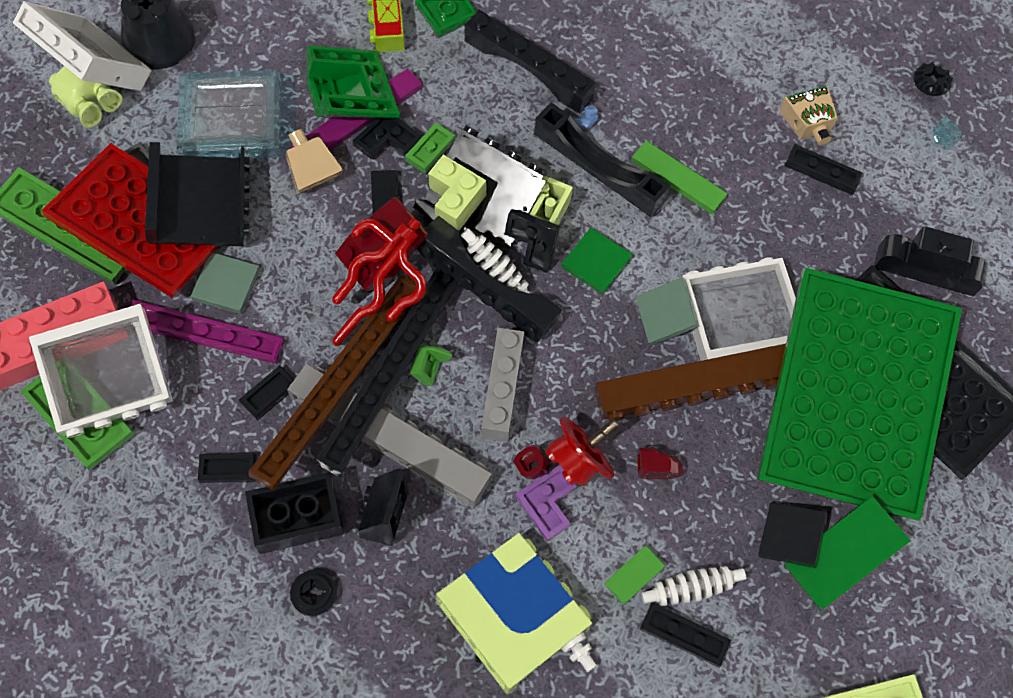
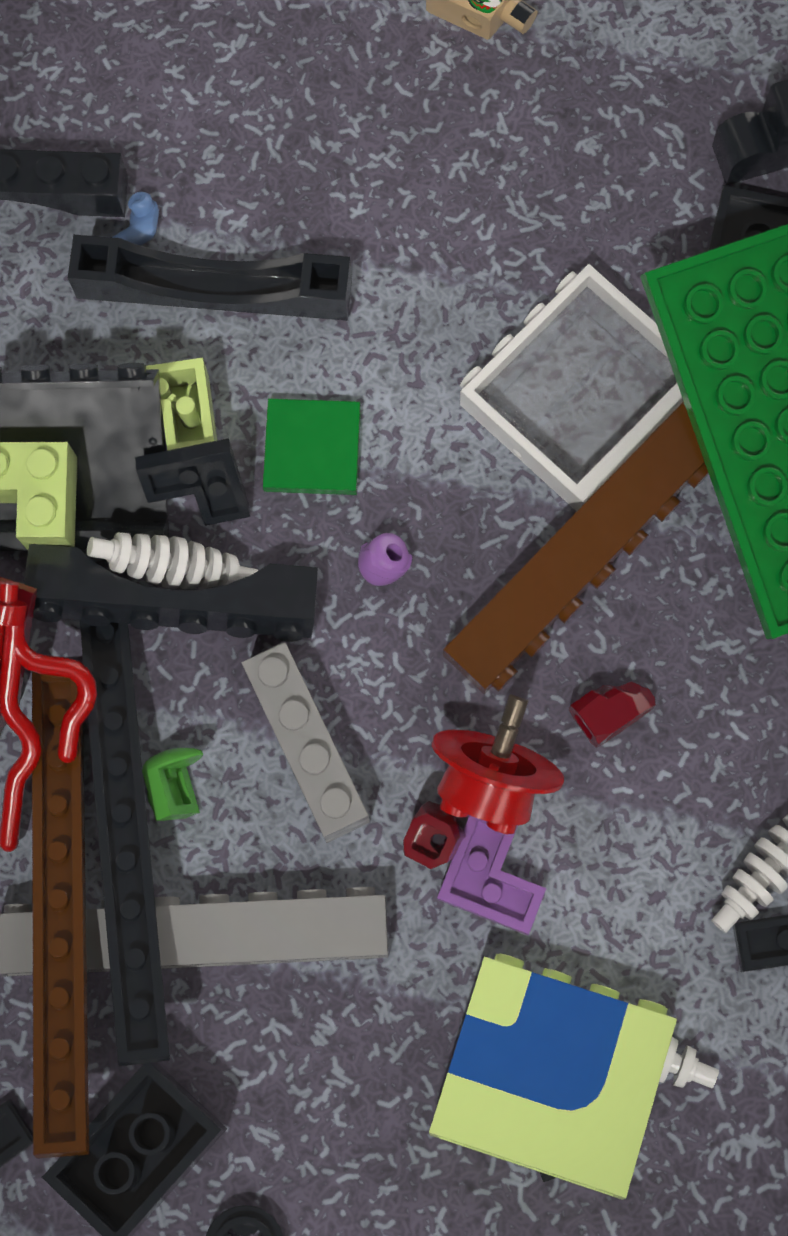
camera: 25 degrees left, 10 degrees up
(383, 507) = (261, 1057): black slope -> none
(595, 328) = (384, 559): none -> medium lavender piece
(634, 575) = (684, 899): bright green tile -> none
(667, 311) = (472, 462): sand green tile -> none
(679, 177) = (346, 225): bright green tile -> none
(823, 169) = (555, 69): black tile -> none

